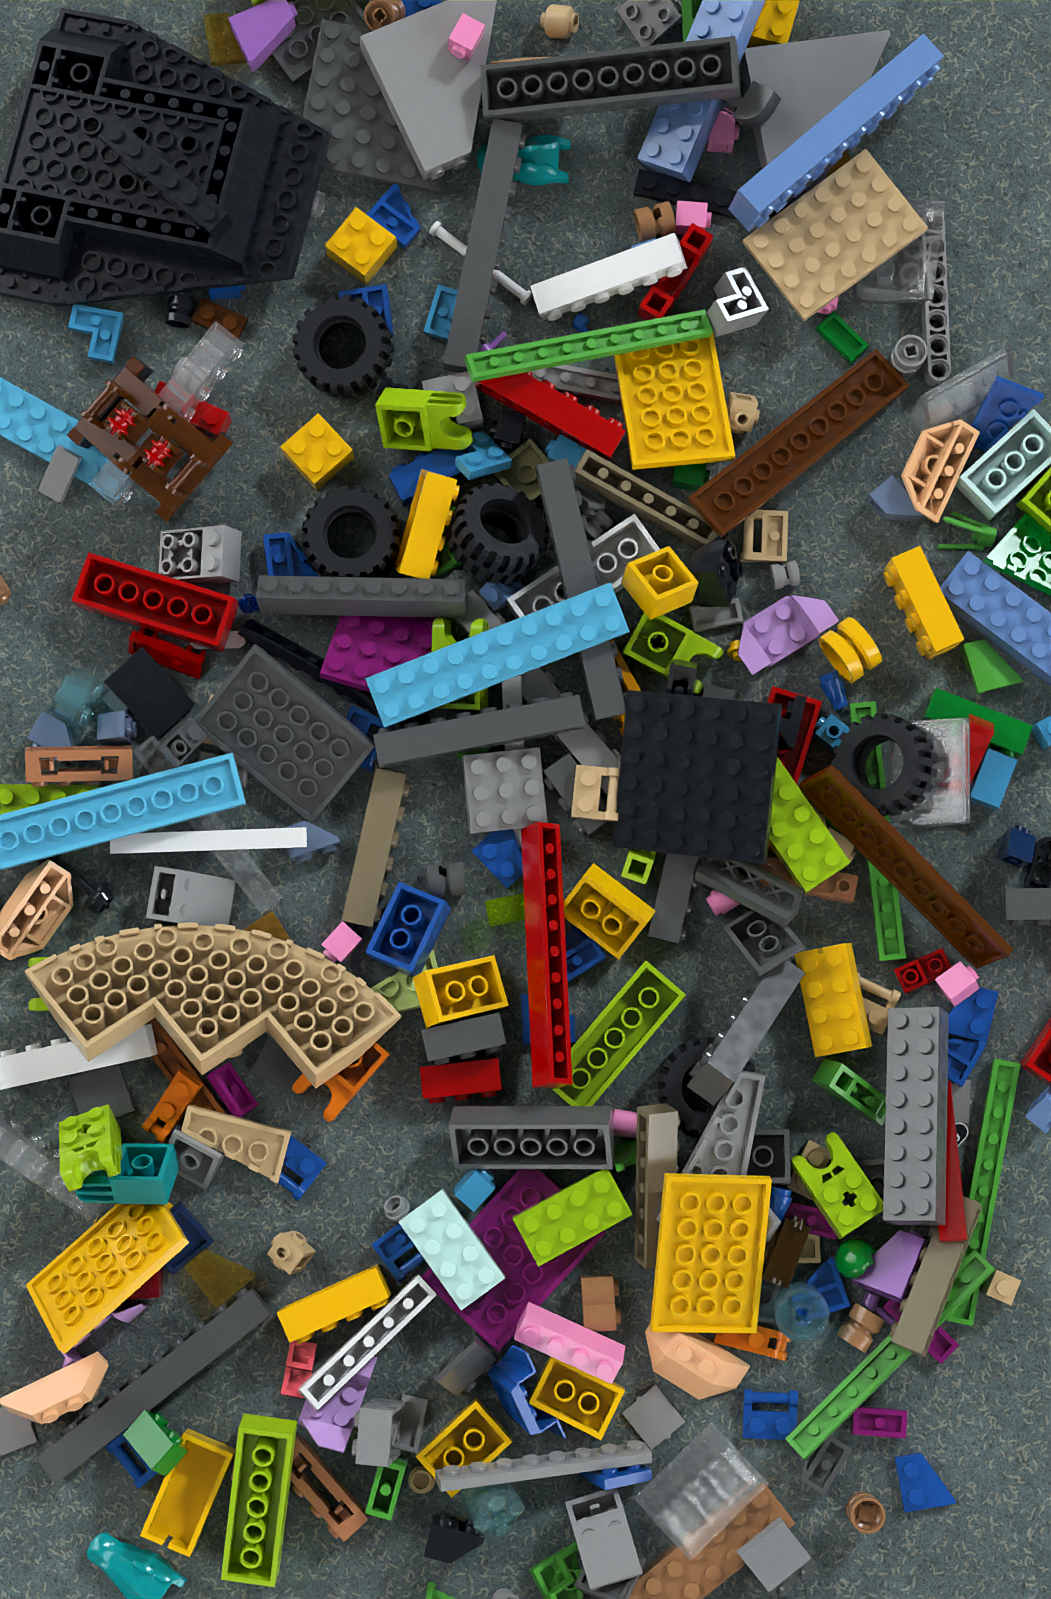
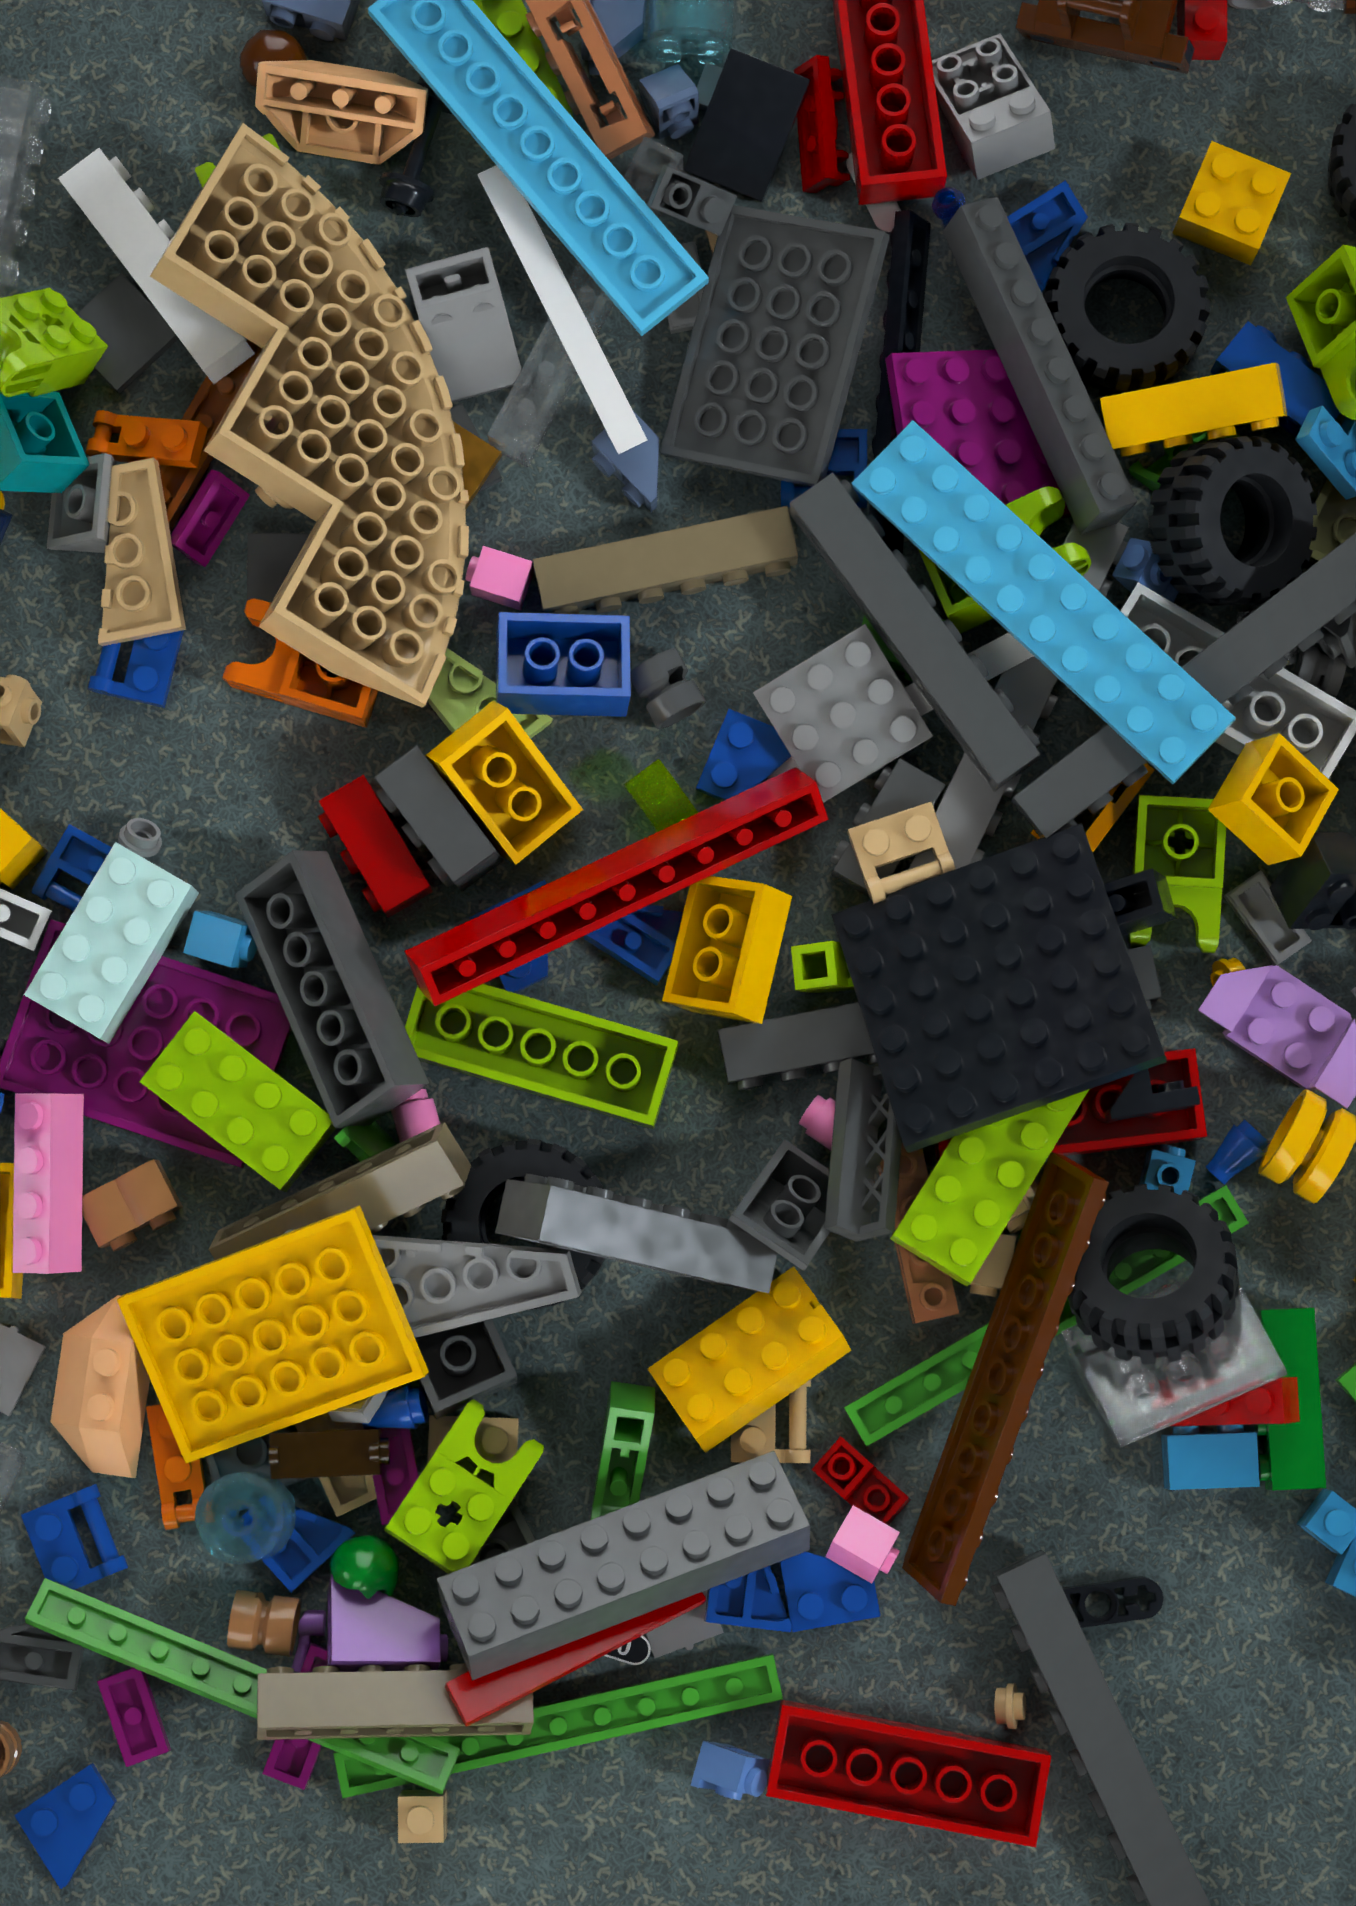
camera: 70 degrees right, 0 degrees up
(1017, 847) = (1122, 1546): dark blue slope -> none

